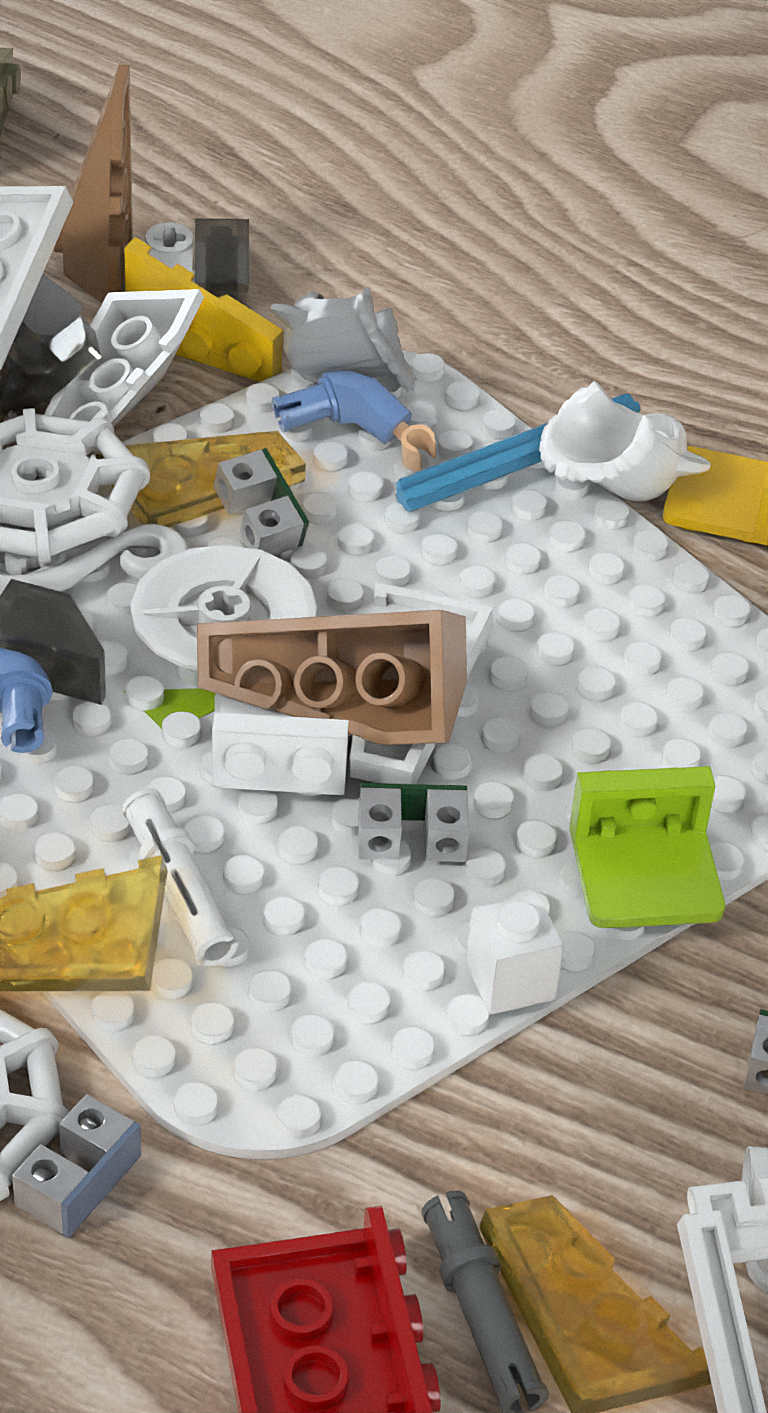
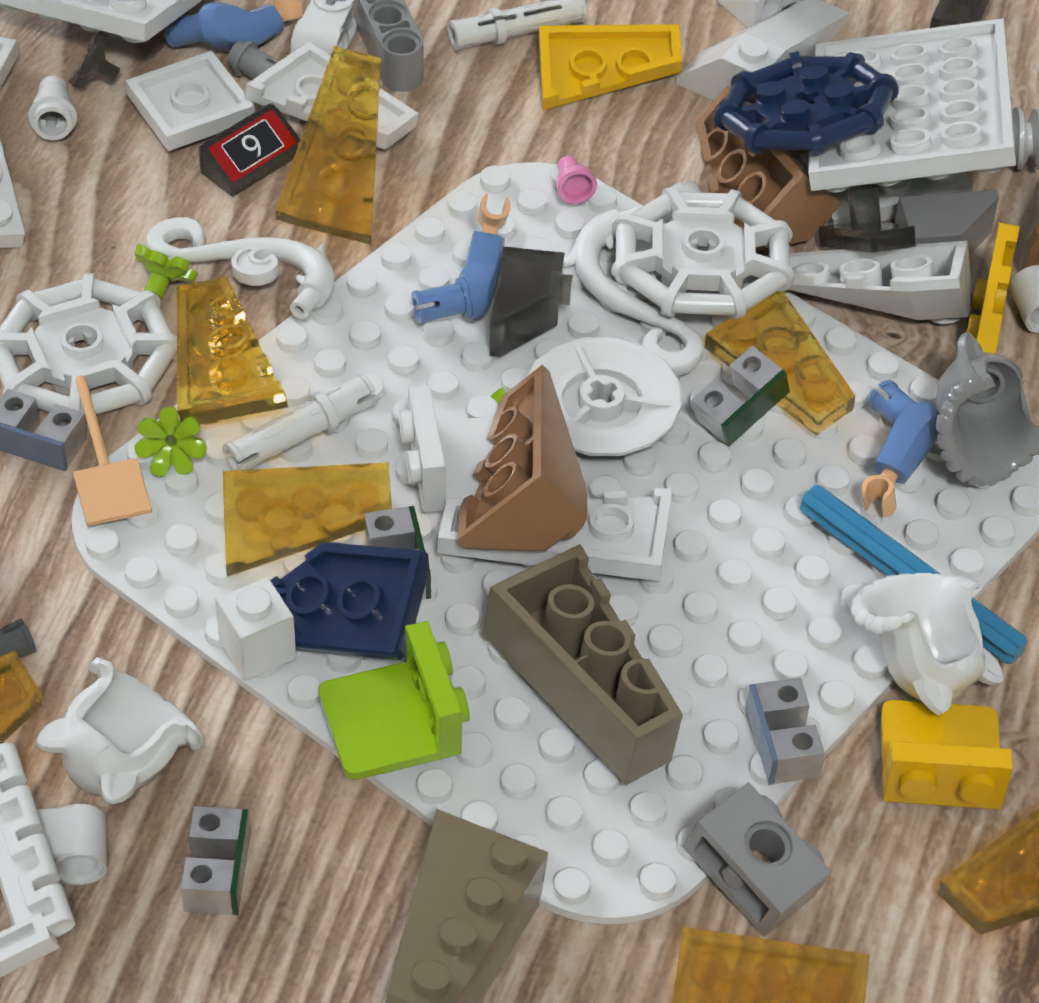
camera: 80 degrees right, 5 degrees up
(175, 1001) = (170, 442): none -> lime plant
(214, 1088) = (110, 489): none -> light nougat piece
(320, 903) = (297, 509): none -> clear yellow wing
(485, 849) = (355, 598): none -> dark blue tile
(621, 685) = (584, 662): none -> dark tan wedge
(647, 1112) = (117, 734): none -> white hair
(731, 588) = (784, 741): none -> flat silver piece

